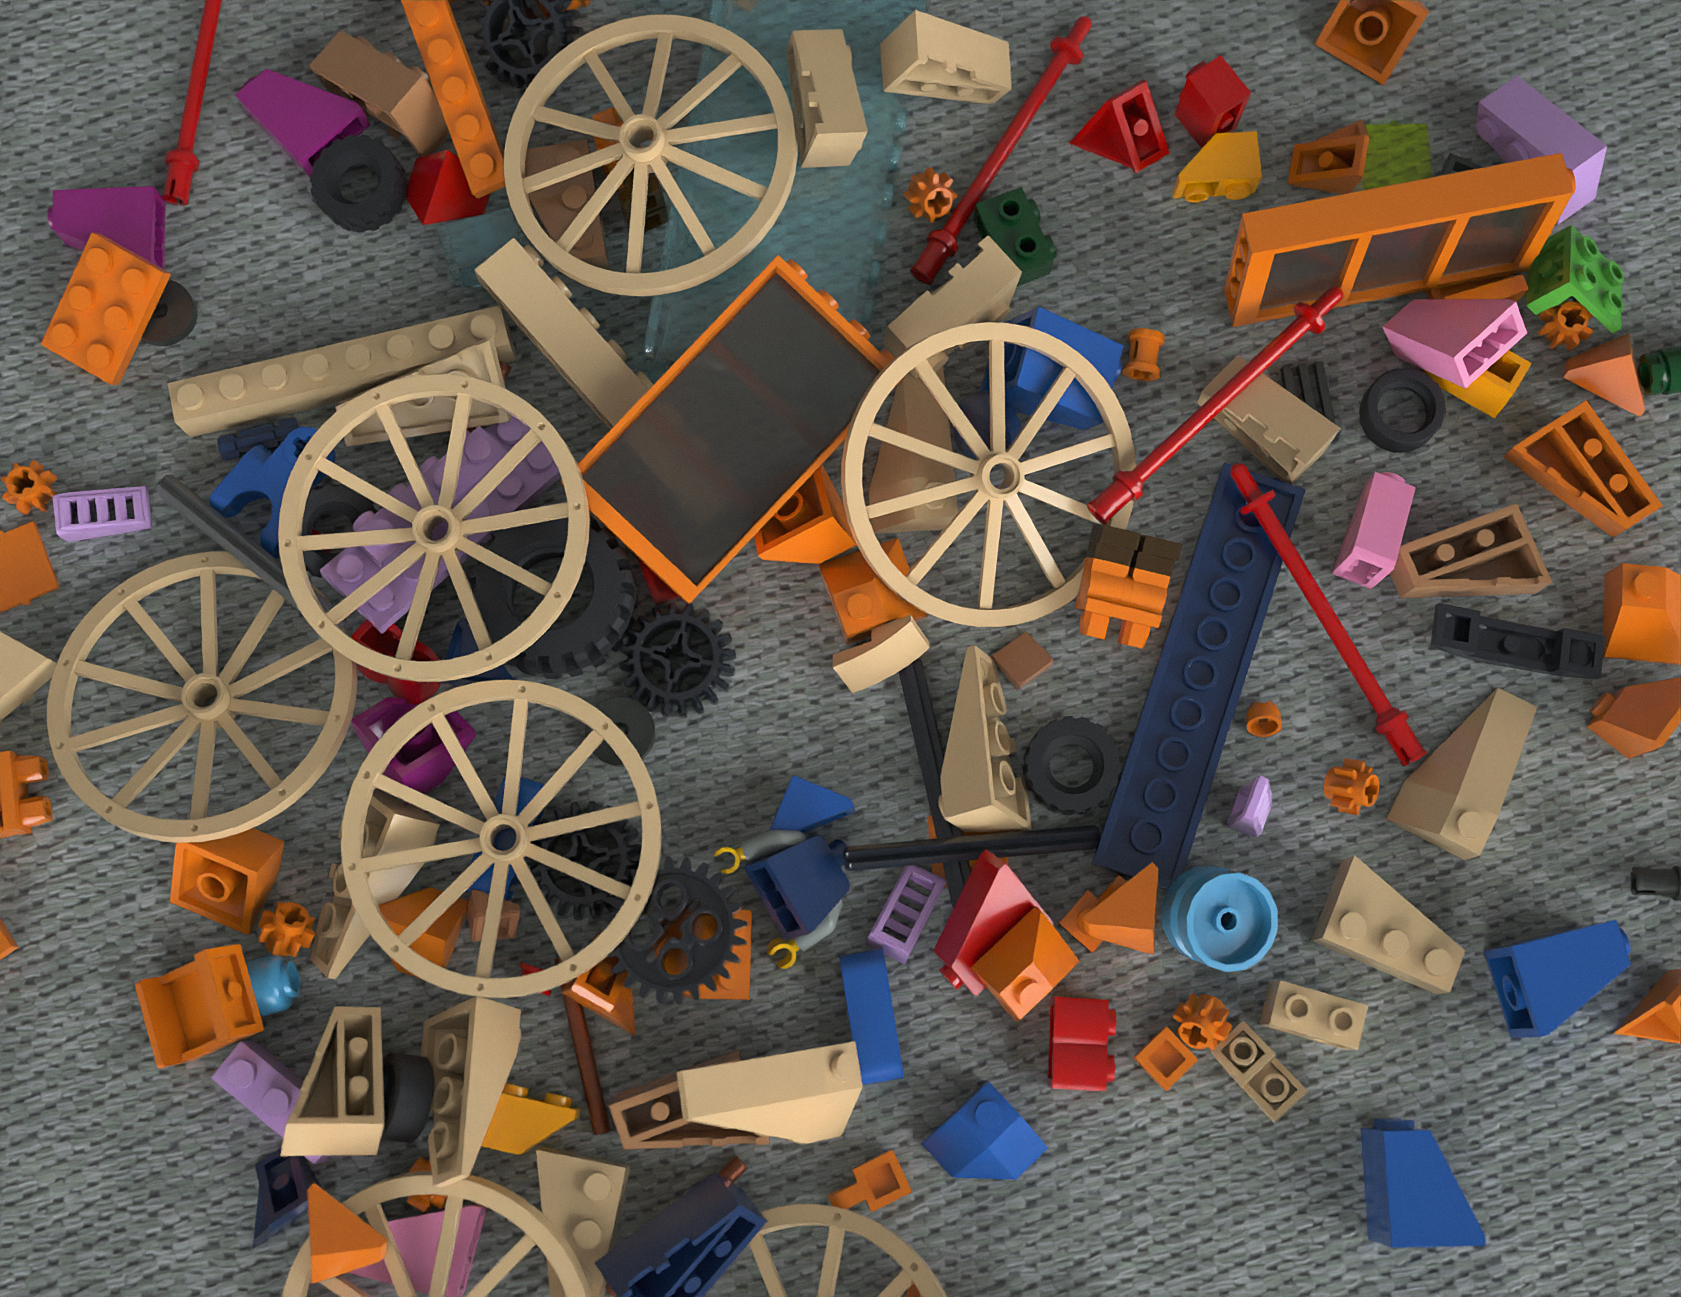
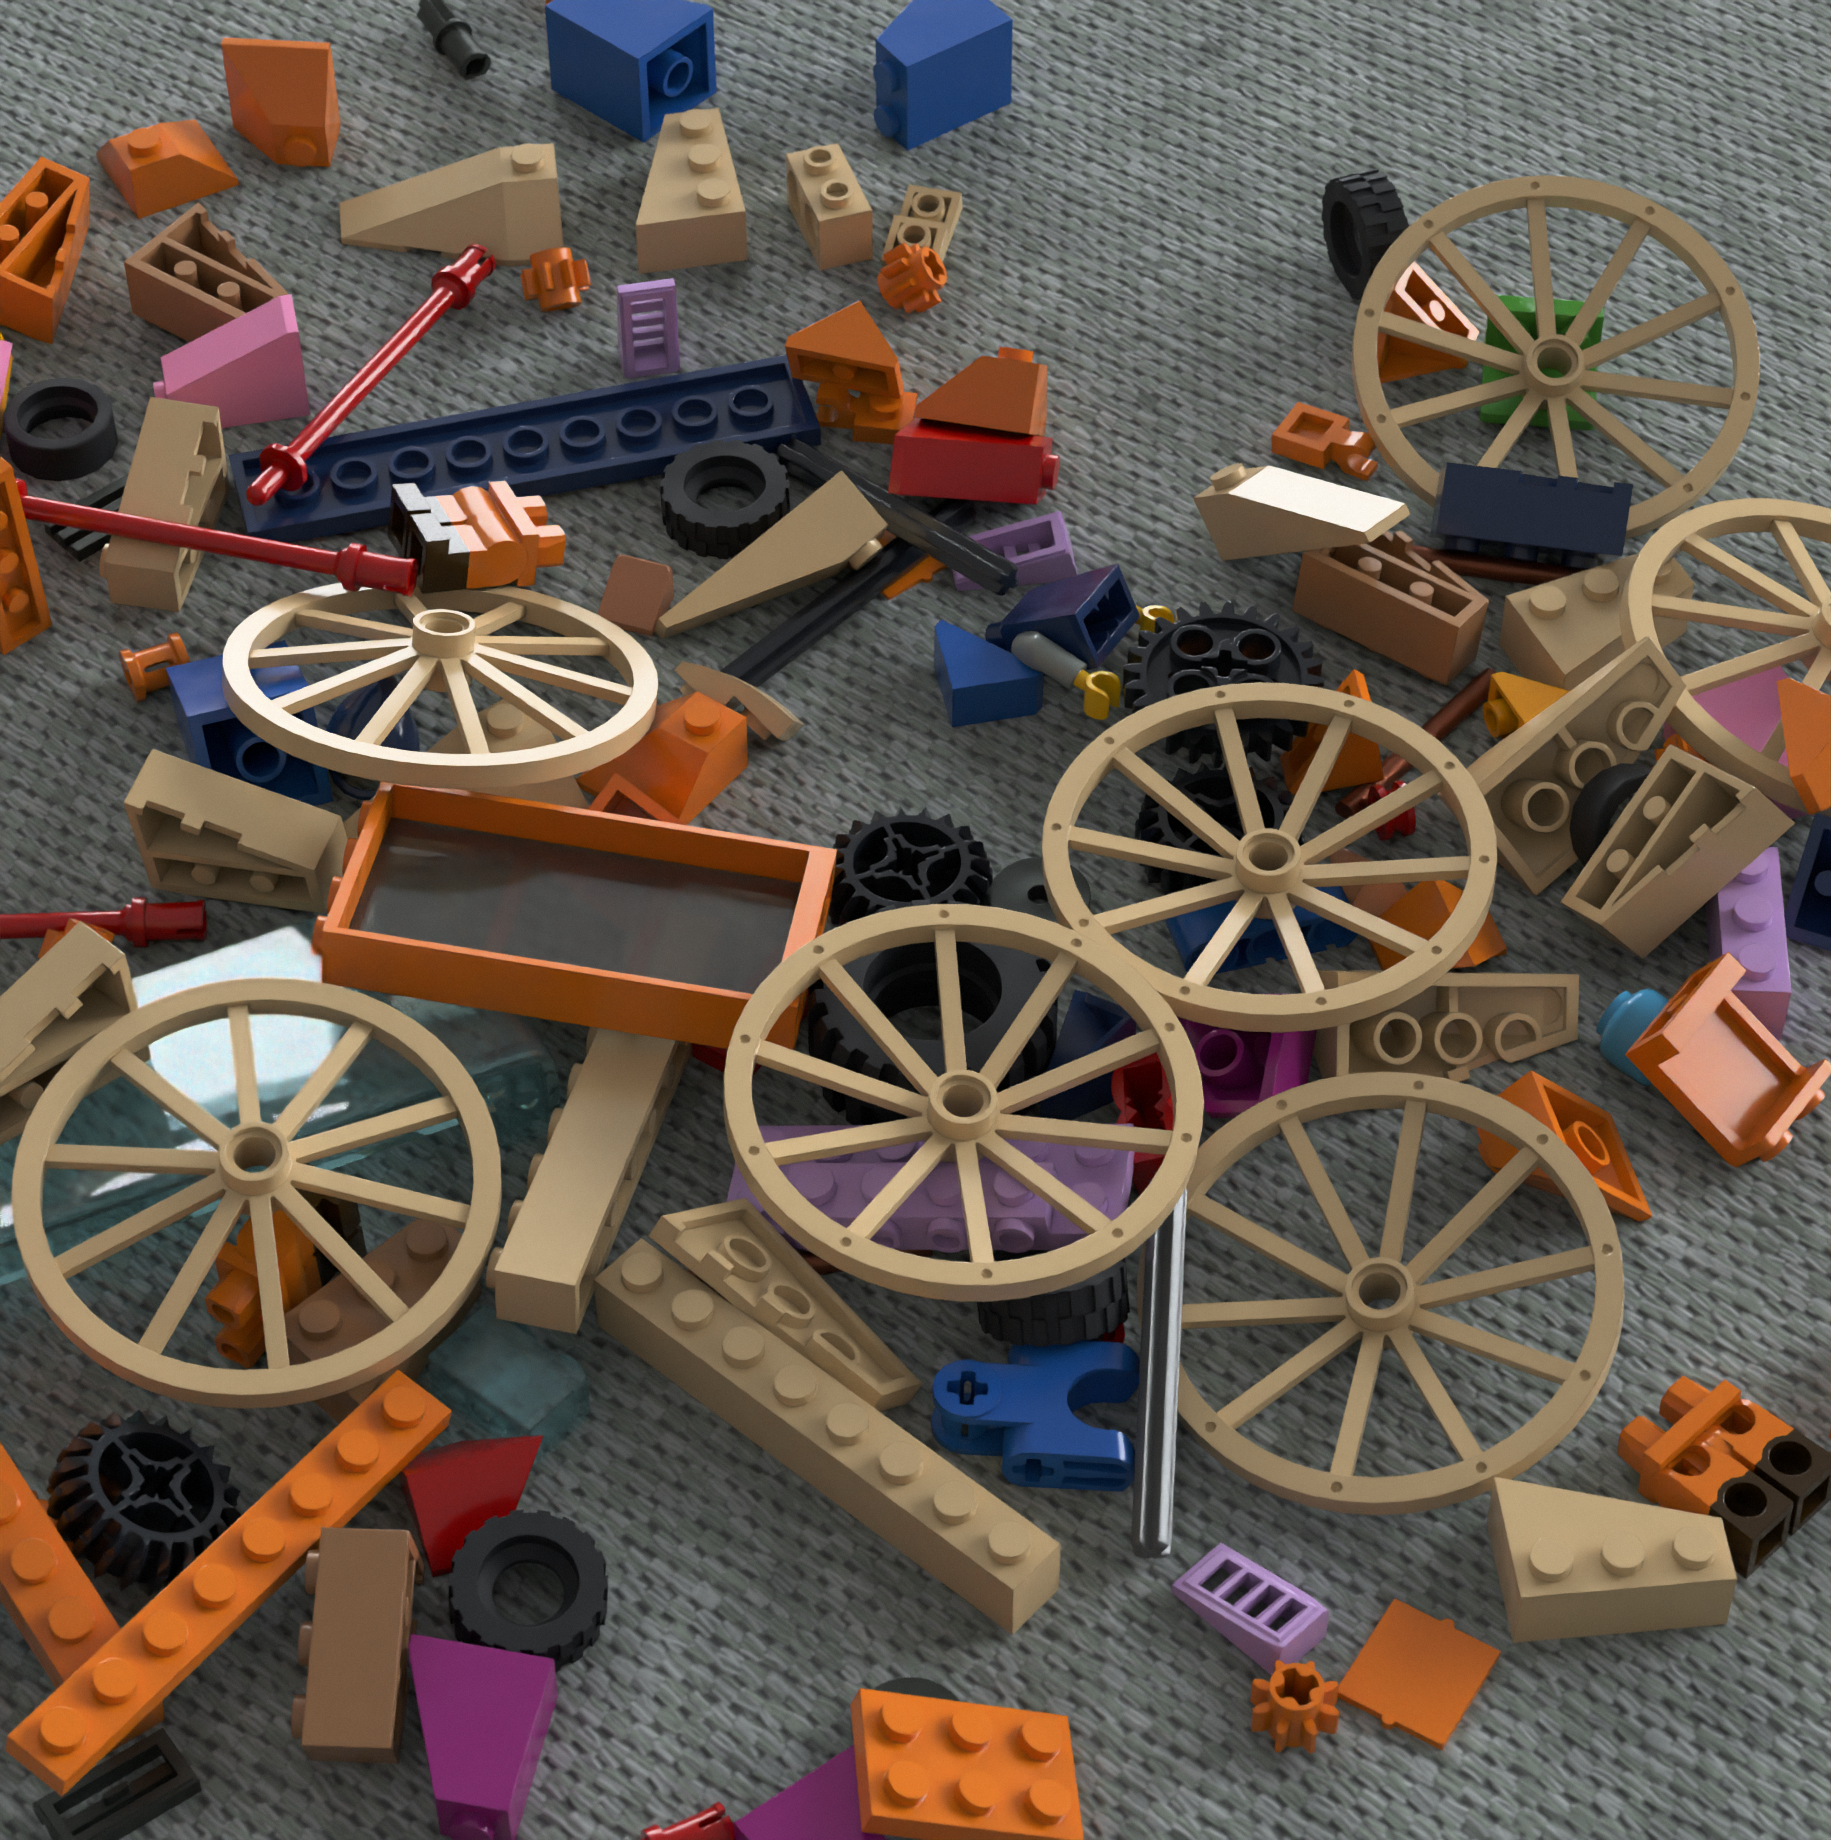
camera: 125 degrees left, 30 degrees down
(266, 435) = (1000, 1485): dark blue axle -> none
(286, 929) = (1567, 1053): orange gear -> none
(871, 1016) = (1145, 521): blue beam -> none
(985, 1139) = (1186, 390): blue slope -> none
(1014, 227) = (78, 852): dark green brick -> none
(1079, 1044) = (1039, 330): red brick -> none
(1165, 1058) = (975, 294): orange plate -> none
(1219, 917) = (787, 287): dark azure wheel -> none
(1265, 727) = (530, 383): orange hinge -> none
(1517, 645) = (274, 229): black slope -> none

